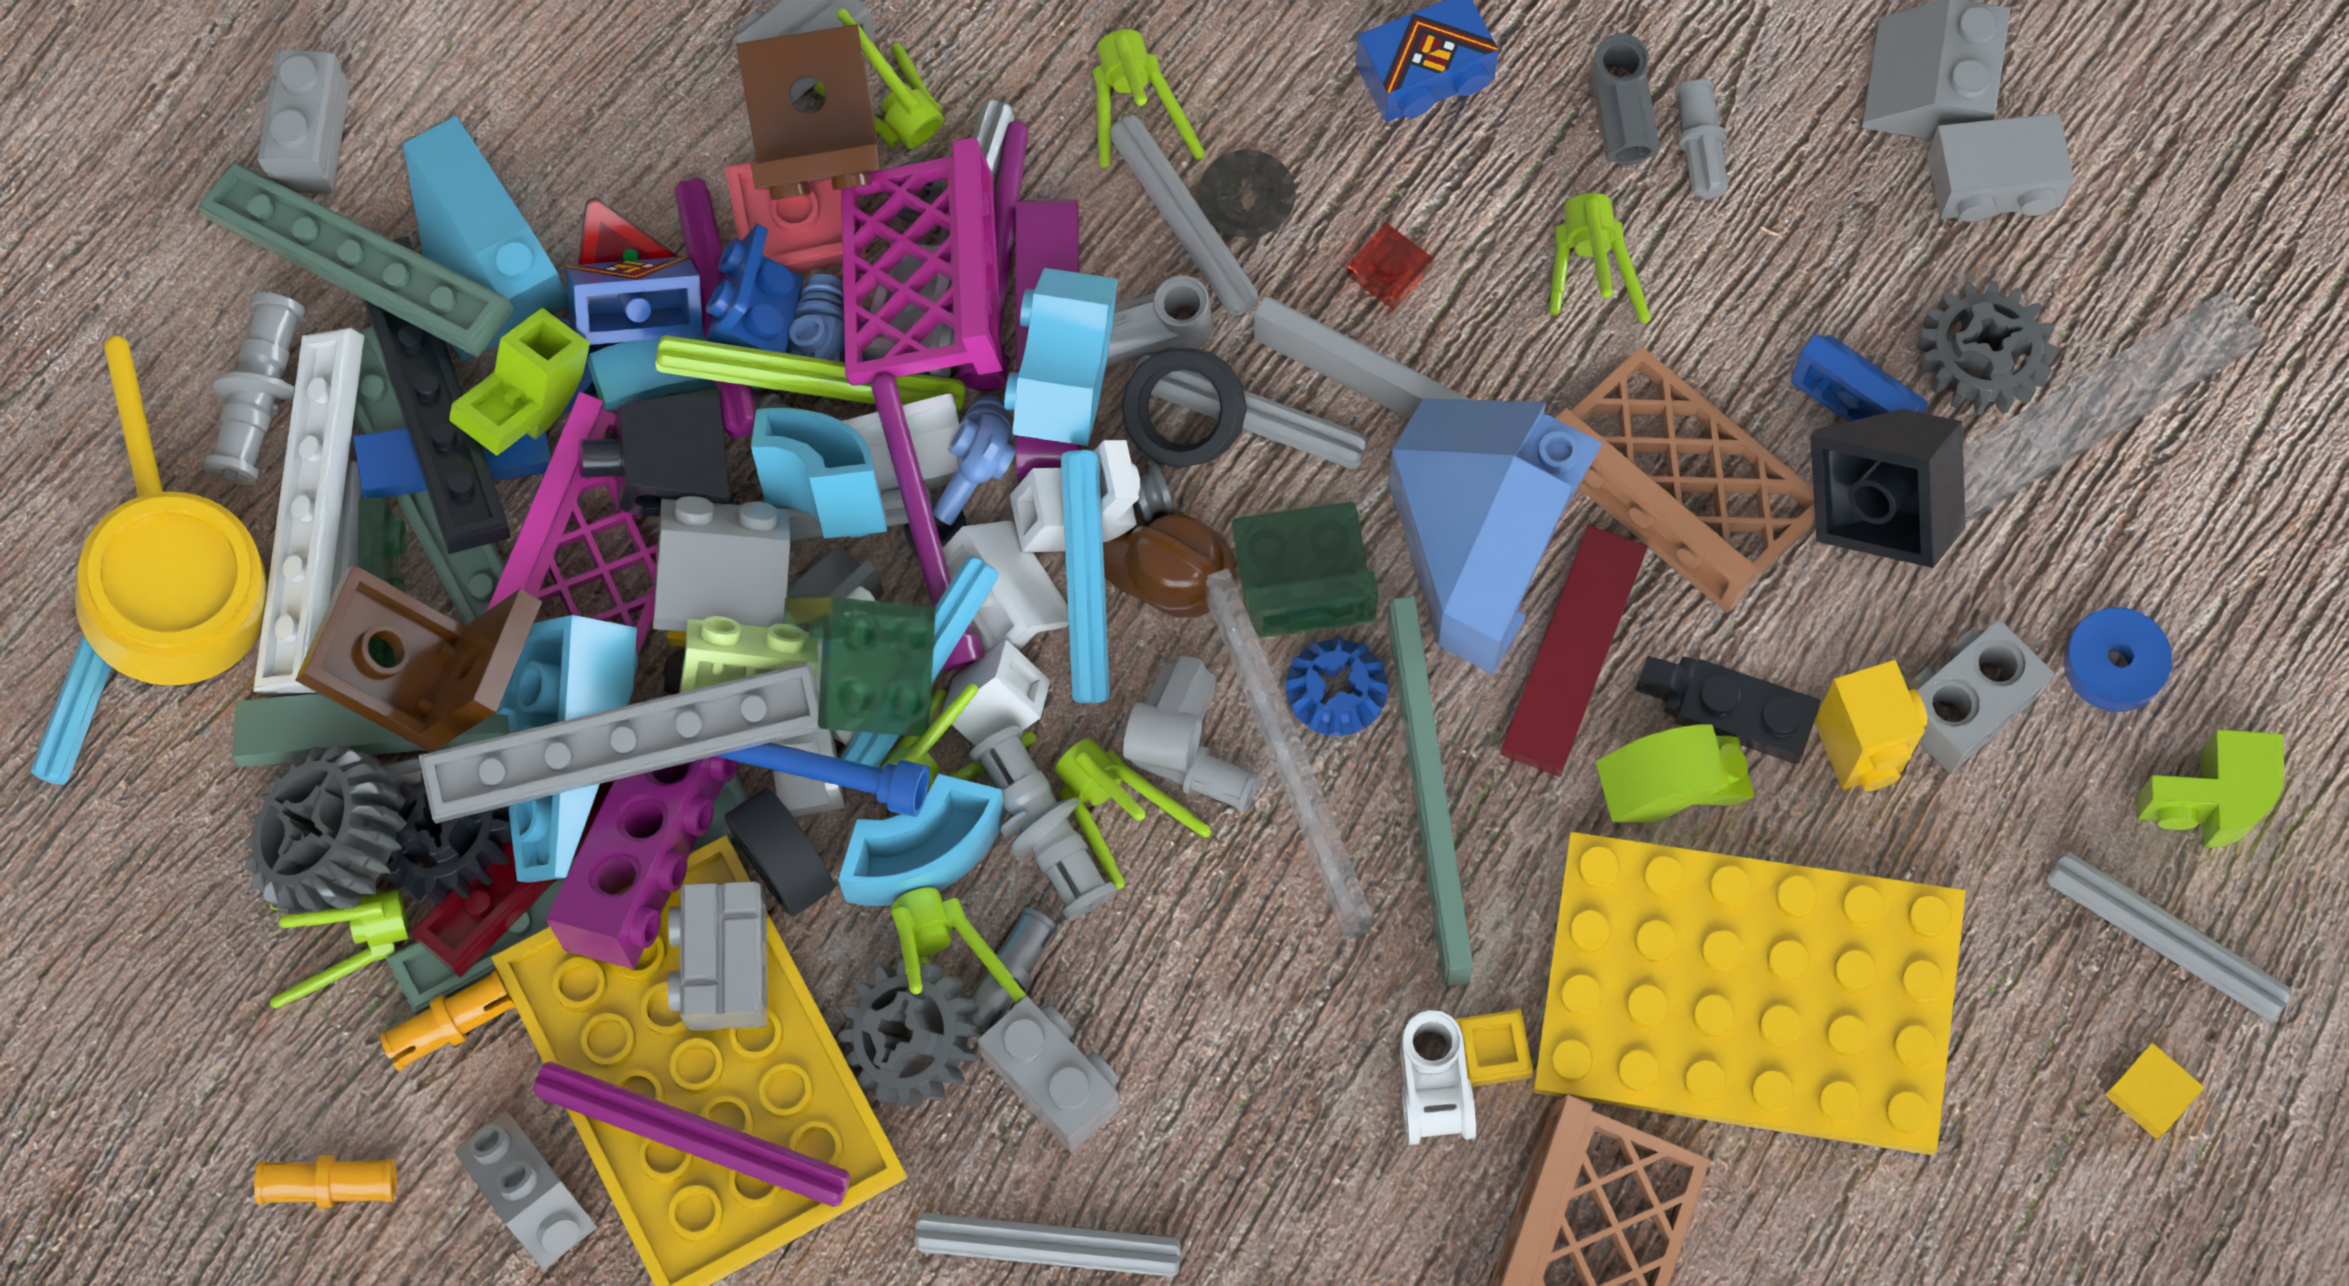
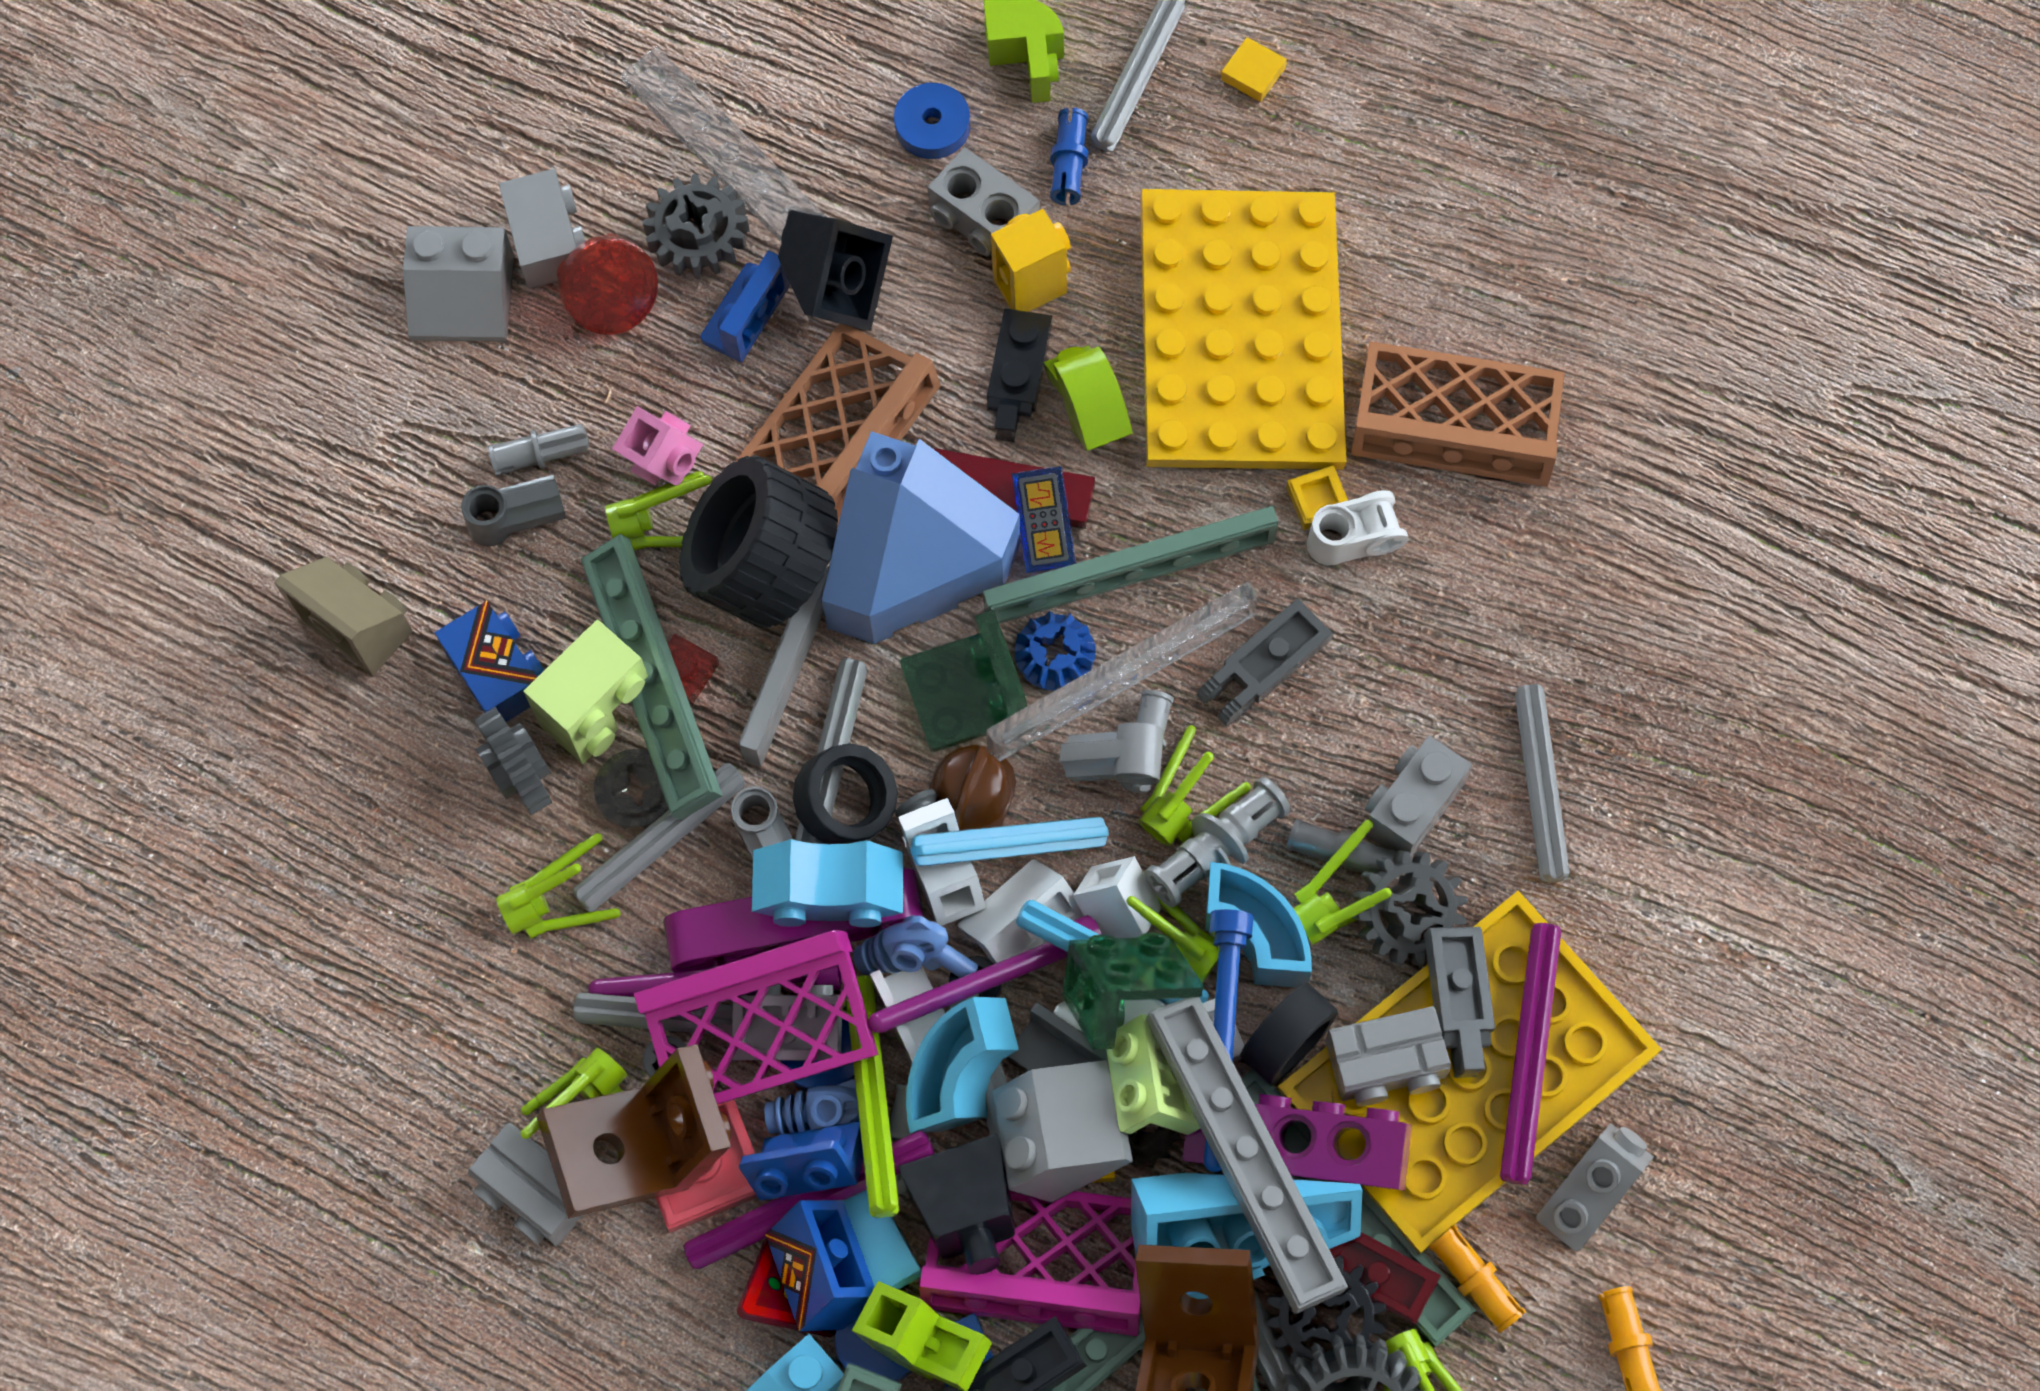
camera: 100 degrees left, 0 degrees up
(779, 1060) = (1461, 995): none -> hinge
(1277, 936) = (1267, 659): none -> dark grey hinge
(1290, 55) = (513, 761): none -> dark grey gear
(1357, 134) = (583, 687): none -> yellowish green brick
(1378, 219) = (662, 703): none -> sand green tile
(1509, 332) = (758, 542): none -> black tyre
(1509, 694) = (1044, 519): none -> tile
(1674, 258) = (658, 446): none -> bright pink brick
(1907, 229) = (608, 284): none -> clear red tile
(2039, 819) = (1069, 156): none -> blue pin

